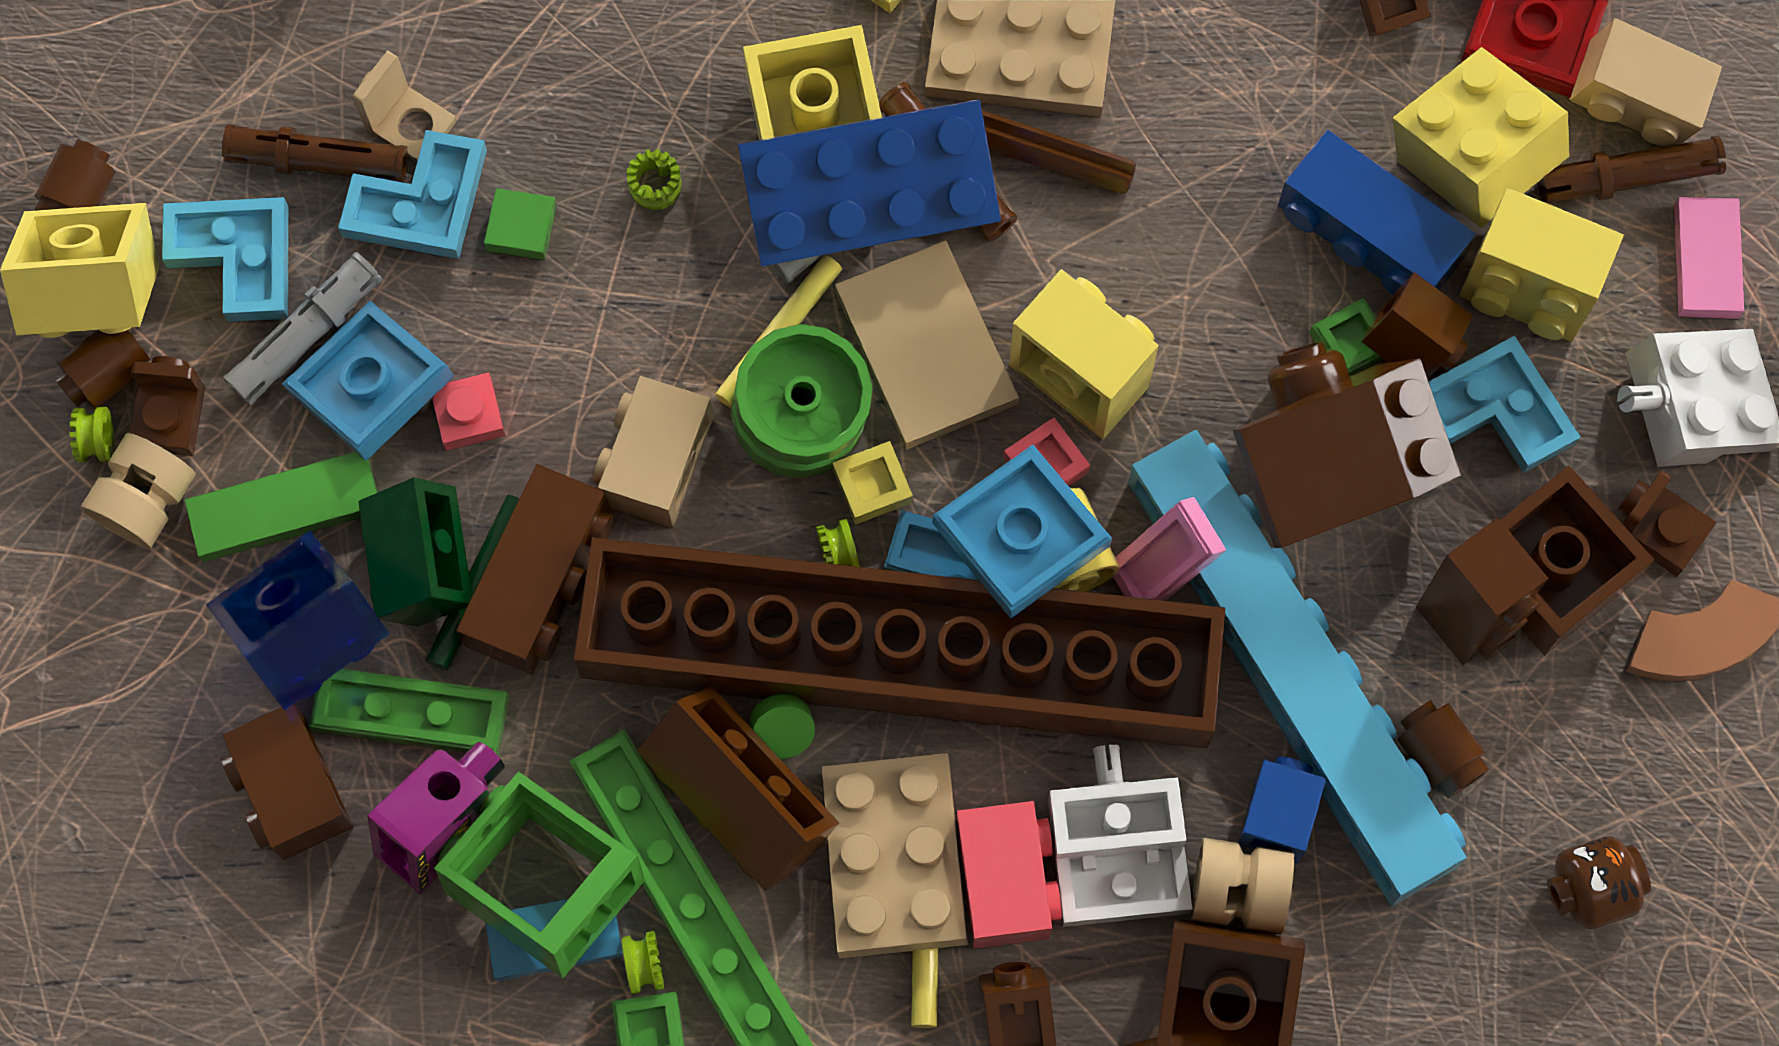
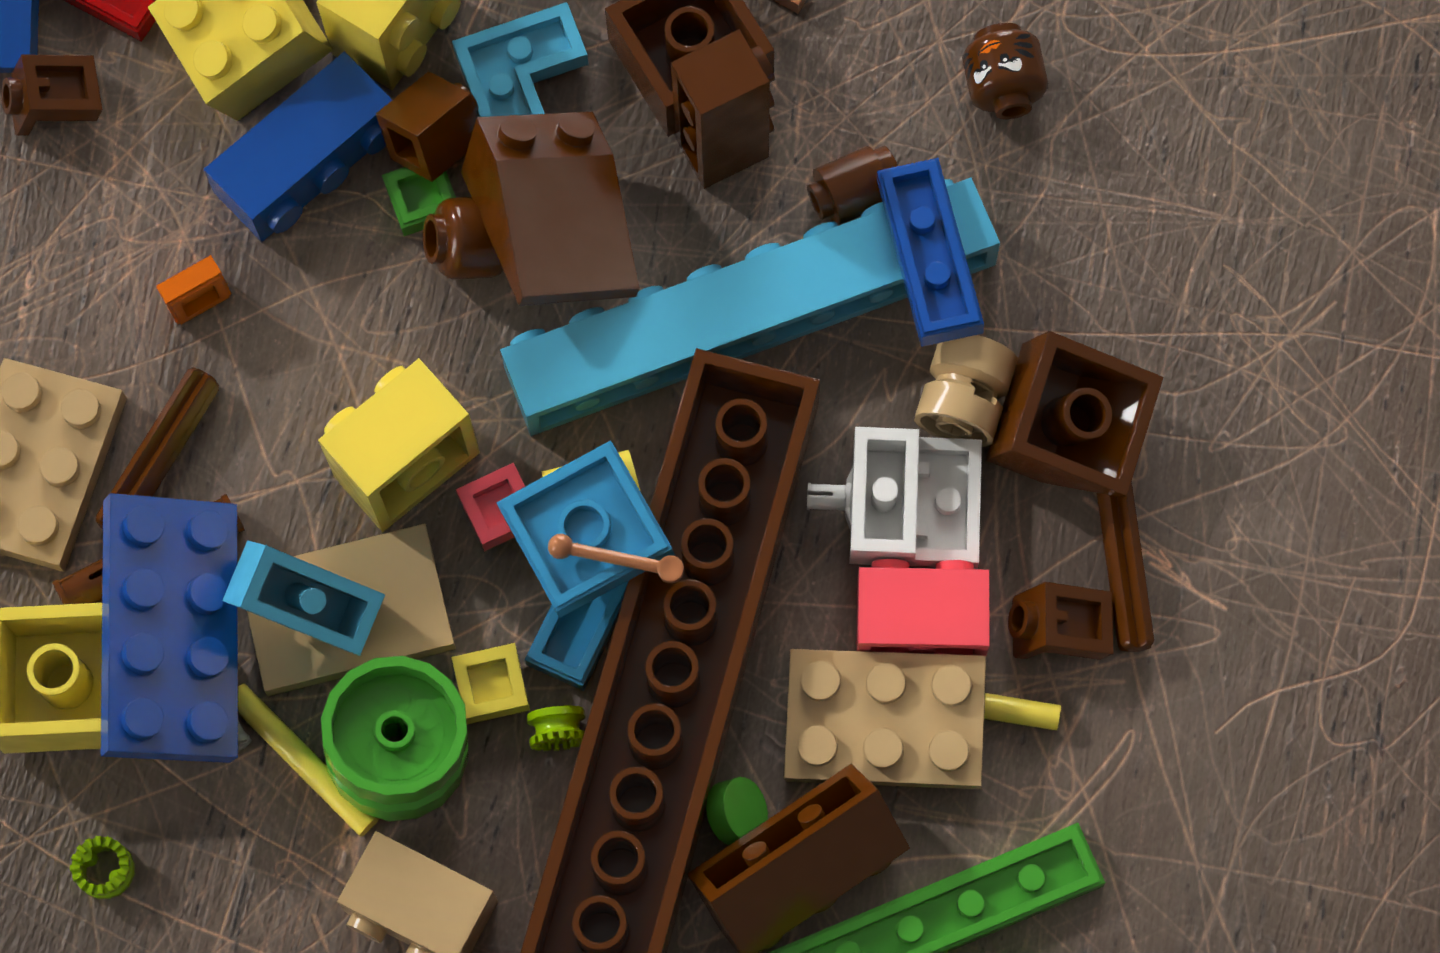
camera: 80 degrees left, 0 degrees up
(913, 290) = (303, 597): none -> medium azure brick
(988, 608) = (669, 567): none -> nougat hinge
(1168, 553) = (627, 398): bright pink tile -> none
(1210, 150) = (194, 290): none -> orange tile
(1282, 806) = (887, 343): blue brick -> none
(1372, 822) = (930, 252): none -> blue tile

